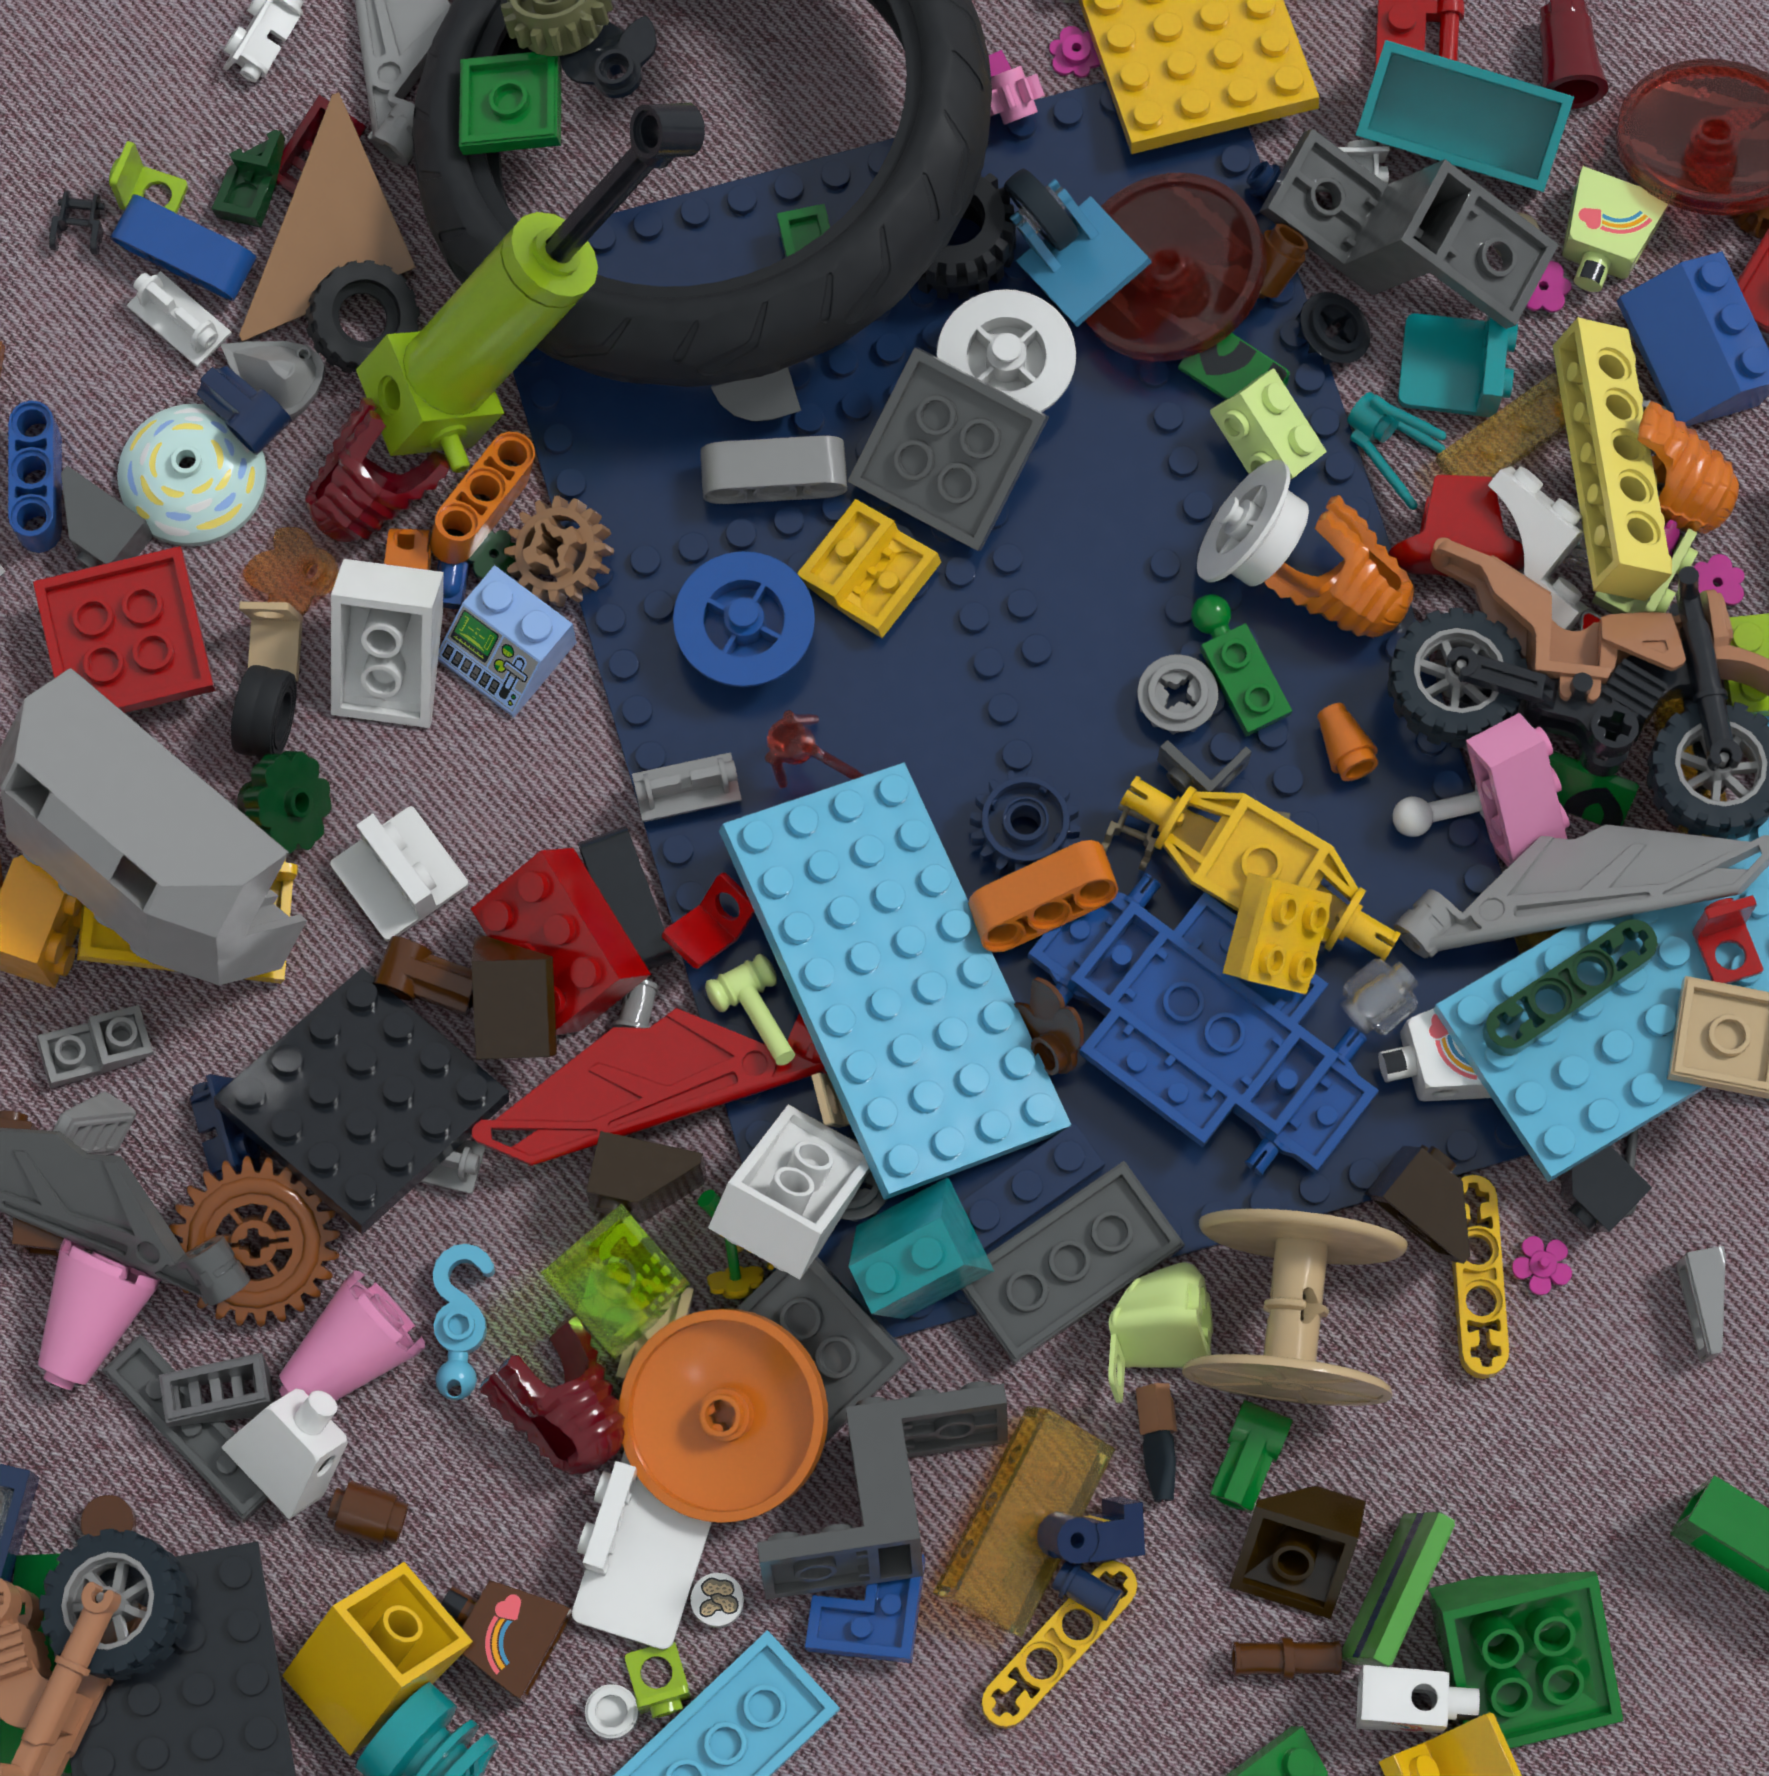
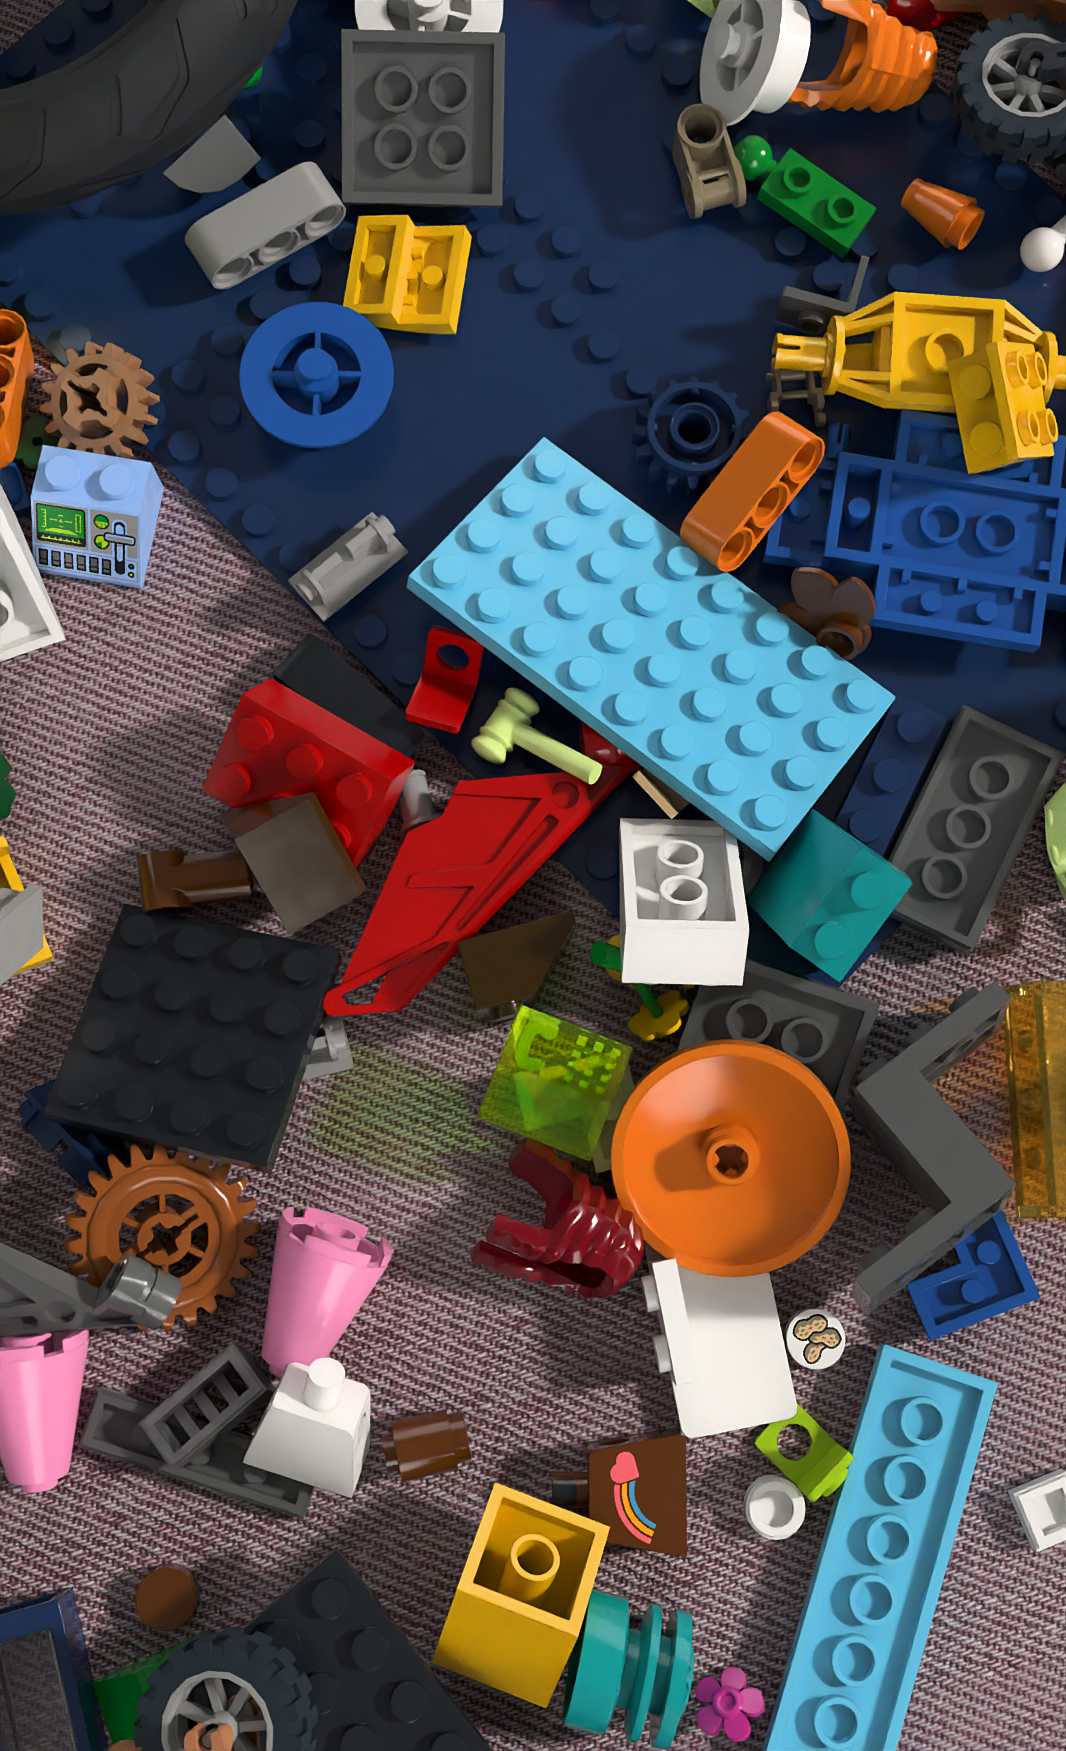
camera: 30 degrees left, 5 degrees up
(398, 872) = (109, 792): white bracket -> none
(459, 1323) = (414, 1203): medium azure piece -> none
(795, 744) = (437, 464): clear red plant -> none
(1167, 608) = (708, 170): none -> dark tan piece
(1173, 672) = (783, 240): light grey gear -> none

